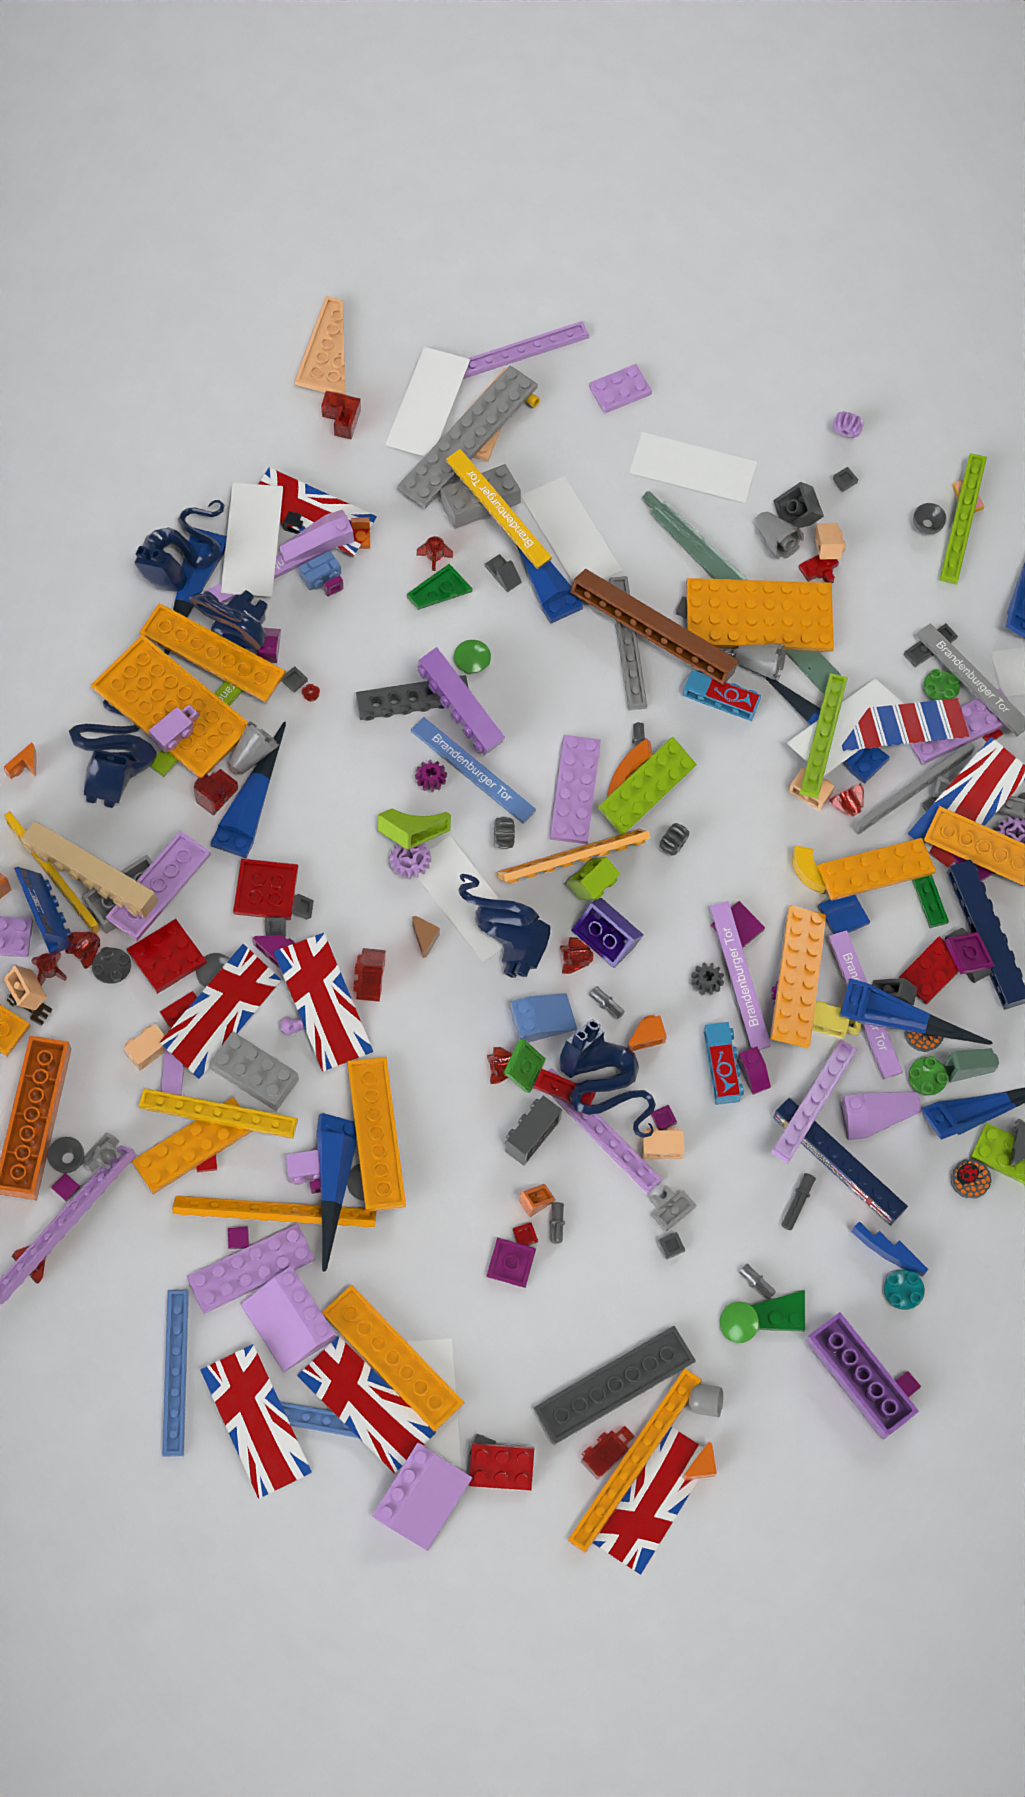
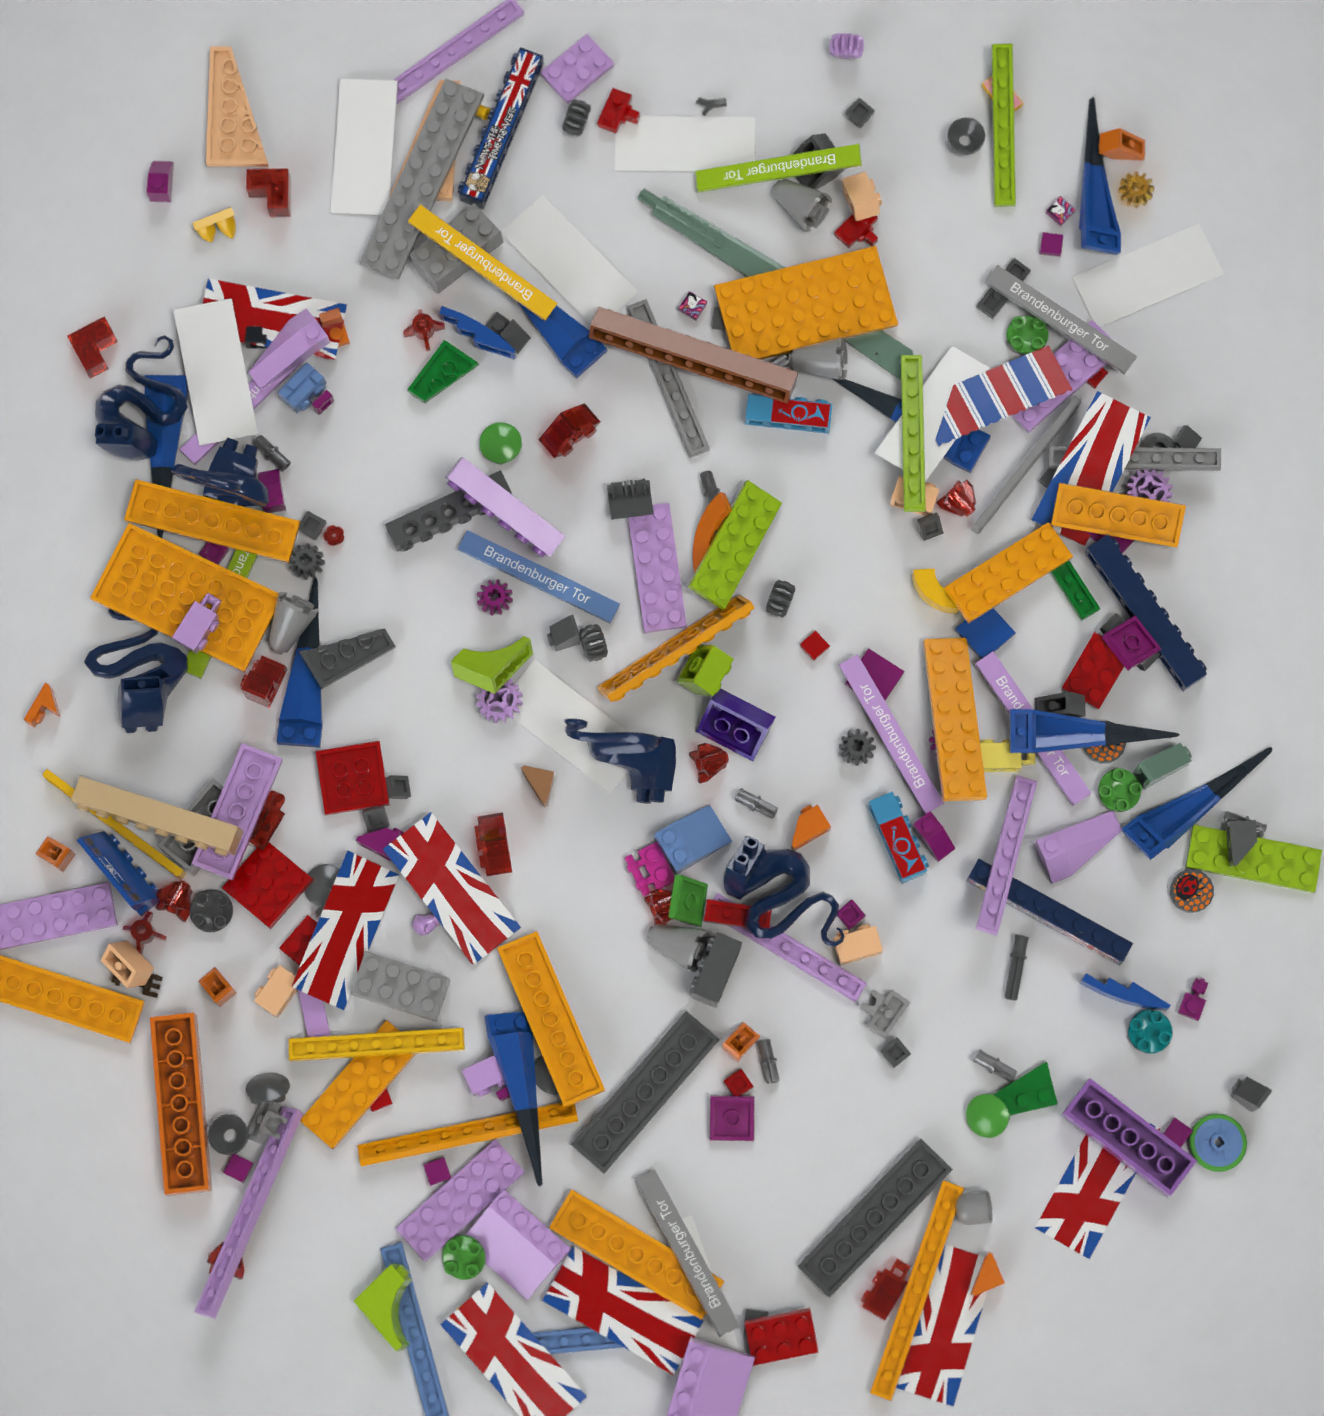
camera: 10 degrees left, 10 degrees up
(97, 1030) = (217, 987): none -> orange slope
(112, 1125) = (267, 1088): none -> dark grey dish
(155, 1335) = (381, 1303): none -> lime arch
(157, 490) = (89, 342): none -> clear red brick
(182, 903) = (268, 820): none -> clear red brick
(207, 679) = (214, 552): none -> magenta tile
(238, 1318) = (463, 1257): none -> bright green dish
(252, 386) = (160, 181): none -> magenta slope
(279, 615) = (272, 453): none -> flat silver axle
(284, 711) = (301, 555): none -> dark grey gear
(284, 790) = (341, 658): none -> dark grey wing
(295, 425) = (224, 220): none -> yellow tile
(438, 1368) = (687, 1253): none -> light grey tile
(440, 1219) = (645, 1092): none -> dark grey plate
(481, 819) = (564, 634): none -> dark grey slope
(482, 569) = (483, 336): none -> blue slope
(505, 1032) = (656, 866): none -> dark pink plate
(507, 1100) = (680, 944): none -> light grey cone
(532, 656) = (569, 429): none -> clear red brick
(545, 415) = (501, 128): none -> brick
(568, 728) = (630, 499): none -> dark grey hinge
(609, 422) = (576, 117): none -> dark grey gear
(644, 427) = (617, 111): none -> red hinge
(664, 591) = (692, 306): none -> tile
(693, 887) = (814, 645): none -> red tile
(723, 442) = (710, 104): none -> dark grey bar
(766, 501) = (779, 168): none -> lime tile
(809, 1421) = (1086, 1198): none -> sticker
(818, 815) = (930, 526): none -> dark grey plate
(947, 1276) = (1192, 1005): none -> magenta plate
(954, 1399) = (1207, 1153): none -> medium blue wheel
(980, 621) = (1051, 244): none -> magenta tile
(981, 1367) = (1250, 1093): none -> dark grey slope
(994, 597) = (1060, 211): none -> tile

